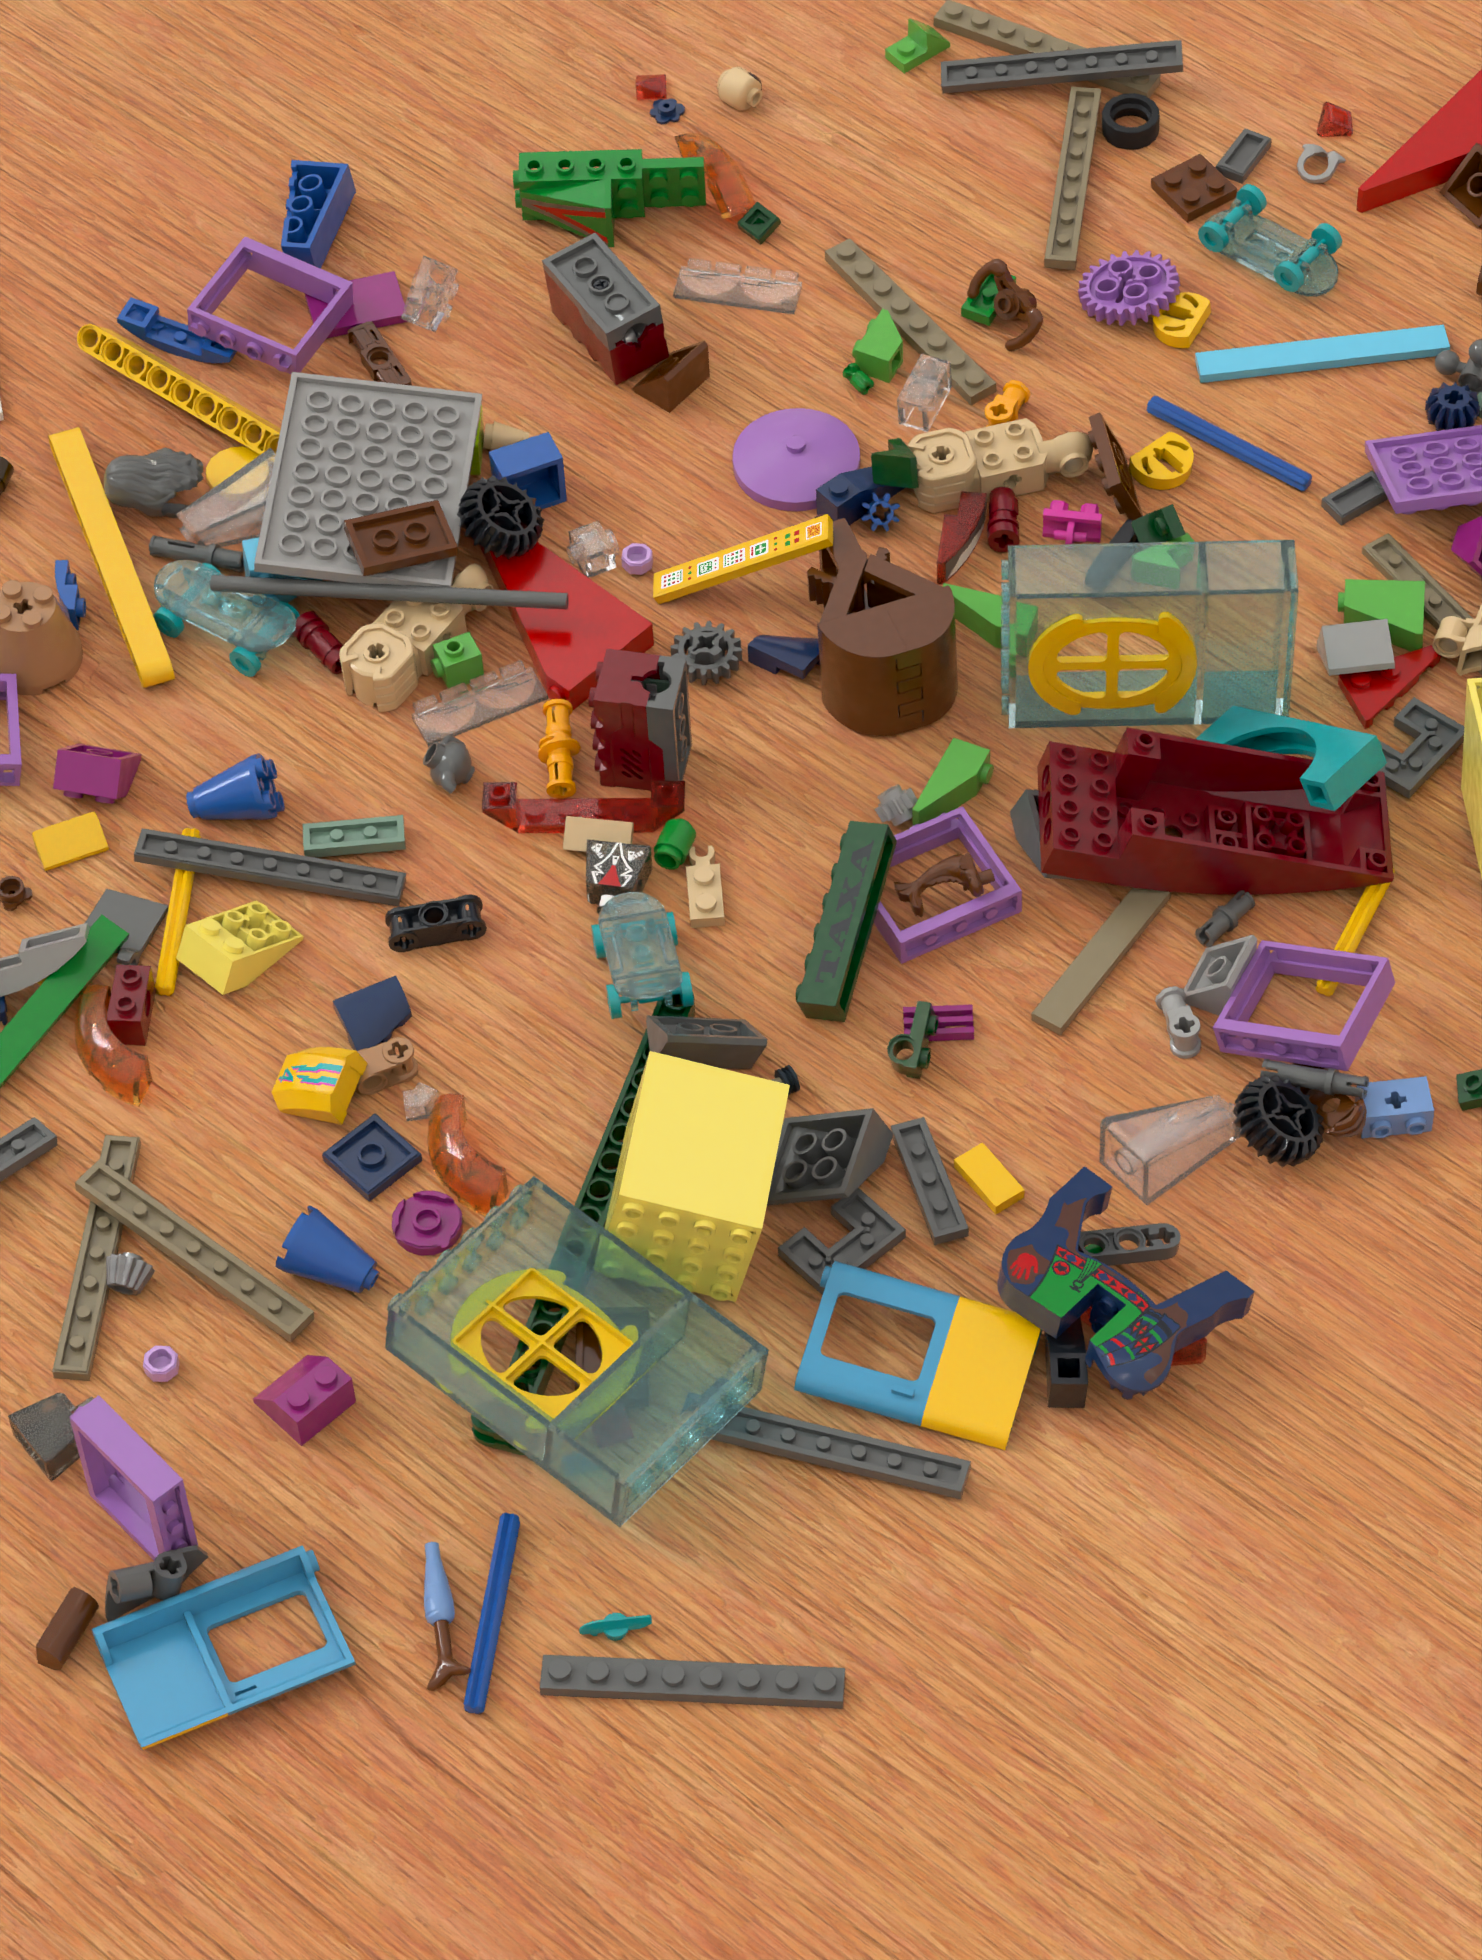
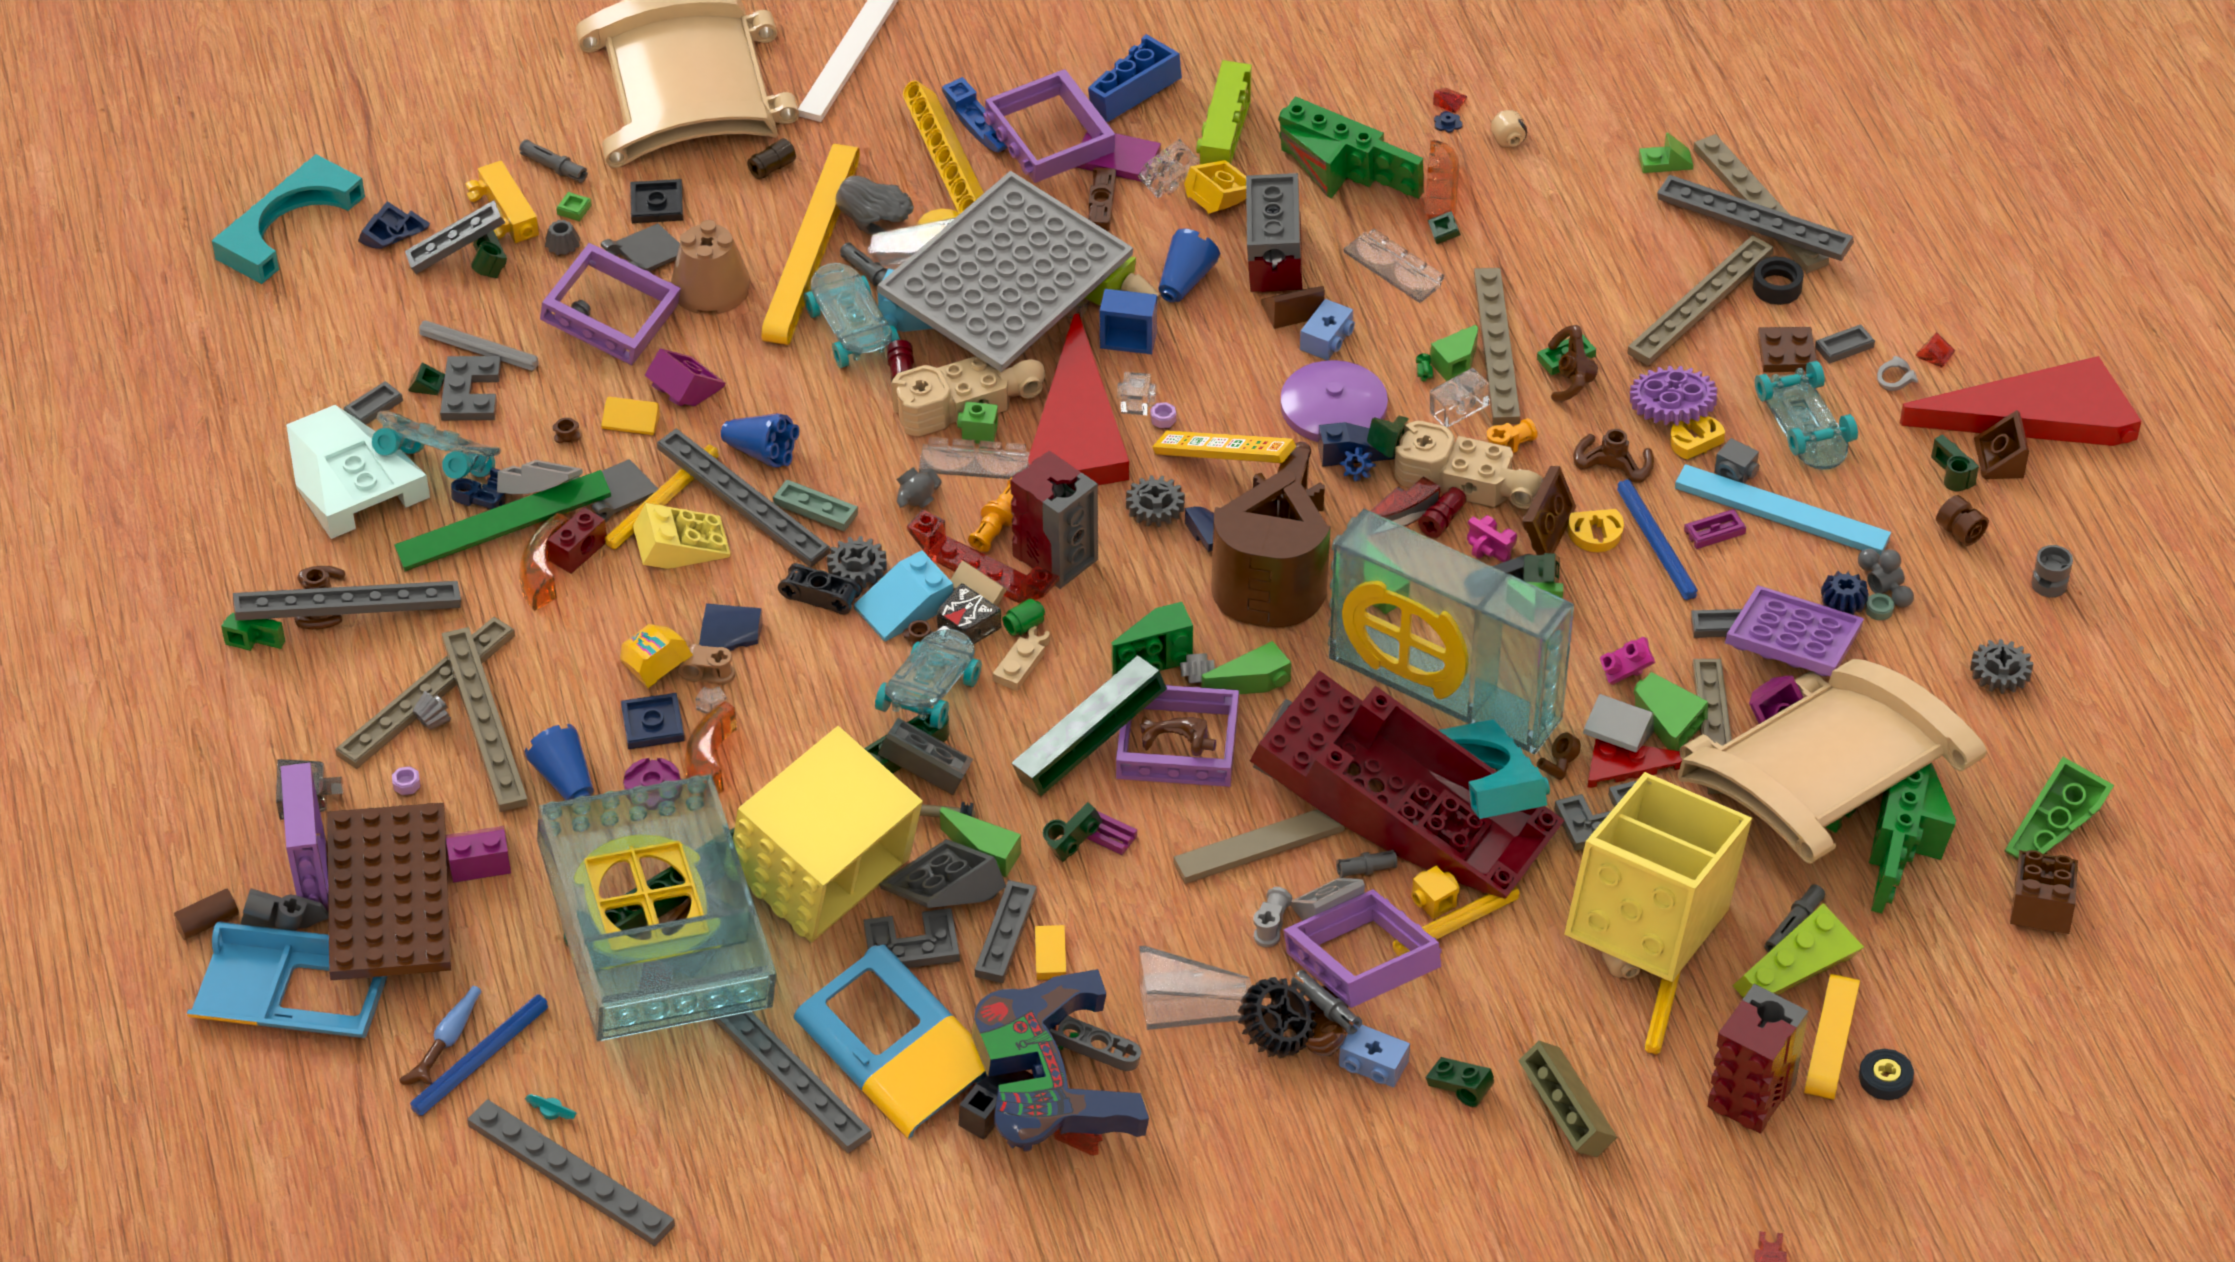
camera: 30 degrees right, 5 degrees down
(69, 592) = (764, 247): blue slope -> none
(263, 1494) = (388, 891): none -> reddish brown plate
(390, 592) = (962, 351): dark grey piece -> none
(400, 538) = (989, 315): reddish brown plate -> none
(442, 208) = (1226, 113): none -> lime wedge
(450, 873) = (857, 561): none -> dark grey gear
(495, 288) = (1215, 185): none -> yellow slope
(500, 517) = (1068, 342): black gear -> none
(533, 884) = (905, 594): none -> medium azure slope
(534, 385) = (1186, 264): none -> blue cone
(575, 910) = (917, 631): none -> reddish brown plate
(731, 386) = (1327, 329): none -> medium blue brick
(830, 1094) = (983, 837): none -> bright green slope
(843, 795) = (1158, 638): none -> green slope
(1120, 376) = (1613, 454): none -> reddish brown piece
(1244, 325) = (1737, 461): none -> dark grey brick
(1264, 420) = (1717, 532): none -> magenta tile
(1311, 702) = (1564, 749): none -> reddish brown plate
(1314, 576) = (1627, 660): none -> dark pink hips
(1315, 911) = (1435, 891): none -> yellow brick
(1455, 227) = (1960, 469): none -> dark green plate

